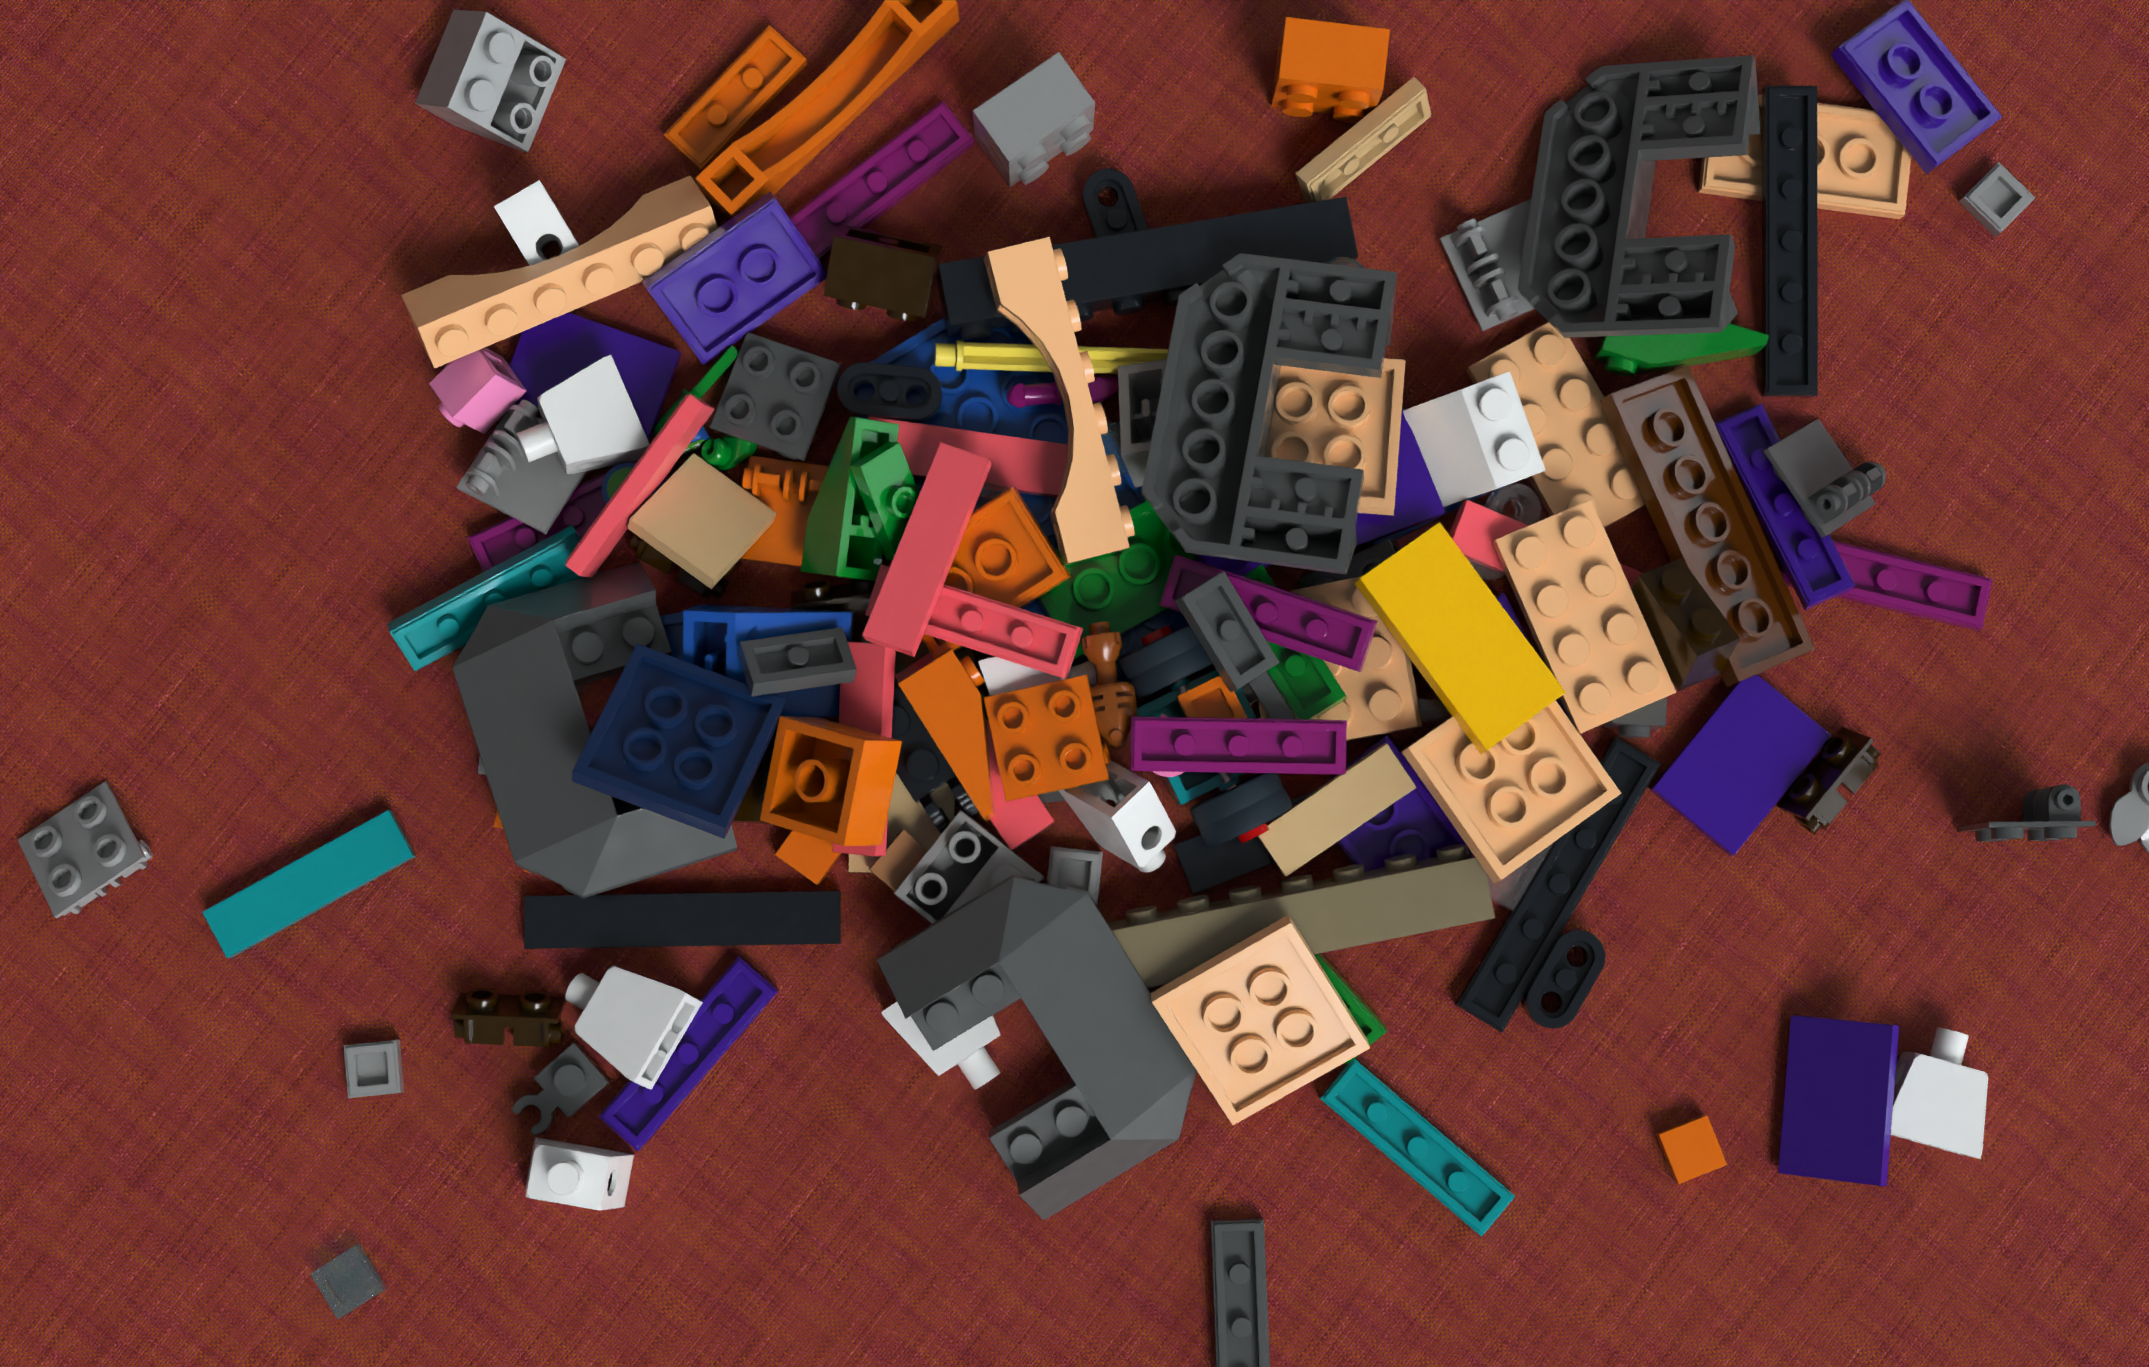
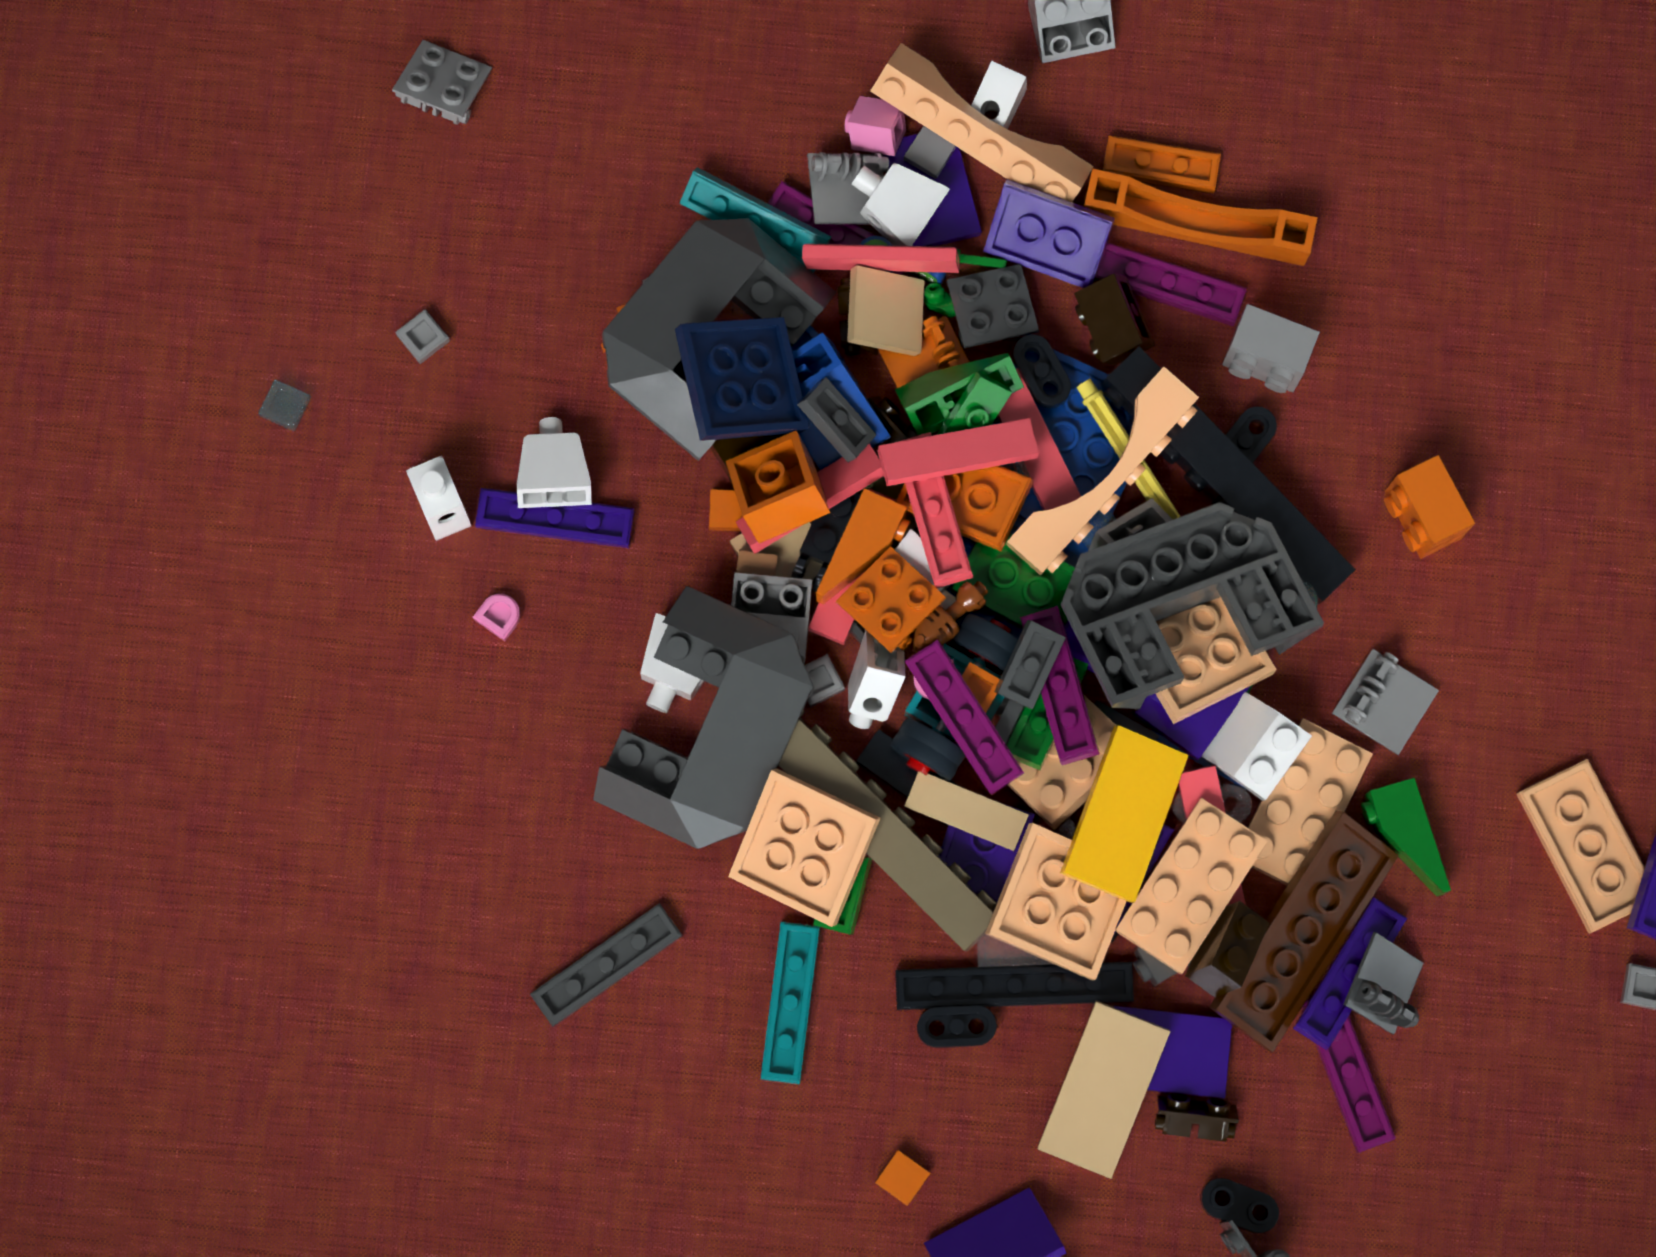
camera: 60 degrees right, 5 degrees down
(309, 884) = (509, 226): teal tile -> none
(485, 1014) = (516, 406): dark brown hinge -> none
(549, 349) = (929, 152): none -> light grey tile
(567, 1085) = (488, 457): dark grey plate -> none
(682, 920) = (634, 461): black tile -> none
(760, 1190) = (499, 615): none -> bright pink tile
(1048, 393) = (1127, 493): magenta piece -> none
(1365, 143) = (1399, 561): tan tile -> none
(1592, 193) = (1434, 737): dark grey slope -> none
(1739, 862) = (1103, 1089): none -> tan tile
(1789, 241) = (1522, 868): black tile -> none
(1957, 796) = (1240, 1205): none -> black plate

